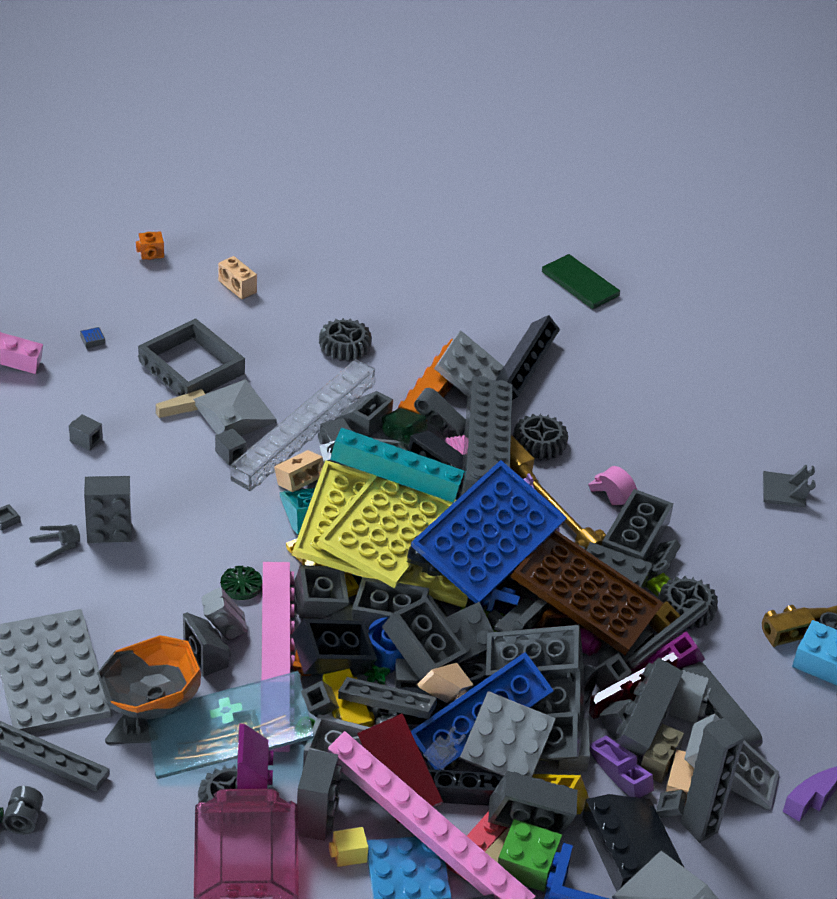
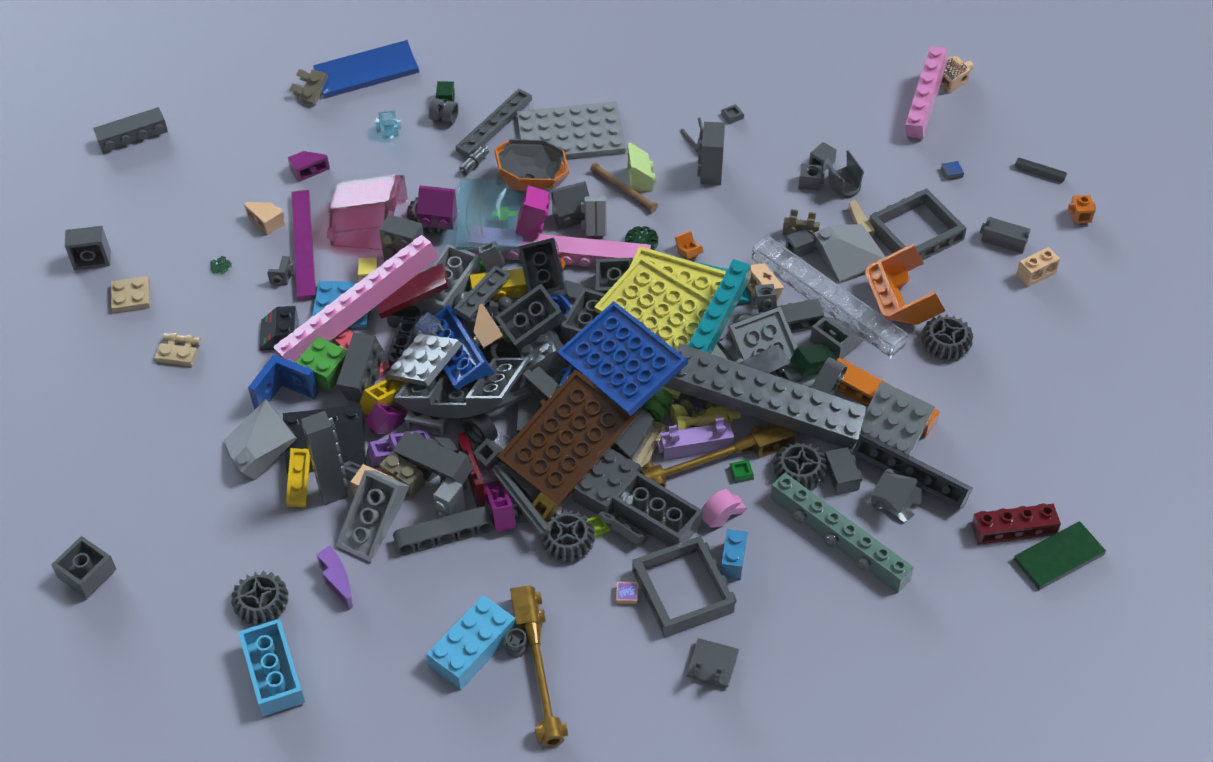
camera: 105 degrees right, 10 degrees up
(54, 876) = (387, 124): none -> clear light blue brick
(86, 275) = (1041, 169): none -> dark grey axle
(117, 410) = (852, 173): none -> dark grey piece
(117, 764) = (474, 160): none -> dark grey pin
(119, 636) = (652, 206): none -> medium nougat bar
(120, 441) = (811, 177): none -> dark grey brick
(129, 589) = (640, 169): none -> yellowish green slope
(193, 297) = (1005, 234): none -> dark grey brick
(206, 440) = (792, 224): none -> dark tan plate
(247, 659) = (532, 212): none -> dark pink brick
(251, 536) = (687, 246): none -> orange bracket
(326, 364) = (892, 273): none -> orange windscreen
(536, 403) = (843, 470): none -> dark grey brick
(555, 482) = (741, 471): none -> green tile
(560, 301) = (1015, 523): none -> dark red brick
(560, 367) = (896, 495): none -> dark grey piece
(594, 778) = (385, 418): none -> magenta slope
(610, 407) = (841, 533): none -> sand green piece
(664, 476) = (734, 554): none -> dark azure brick
(702, 853) = (298, 478): none -> yellow plate
(706, 544) = (692, 619): none -> dark grey window
(733, 555) = (627, 593): none -> tile

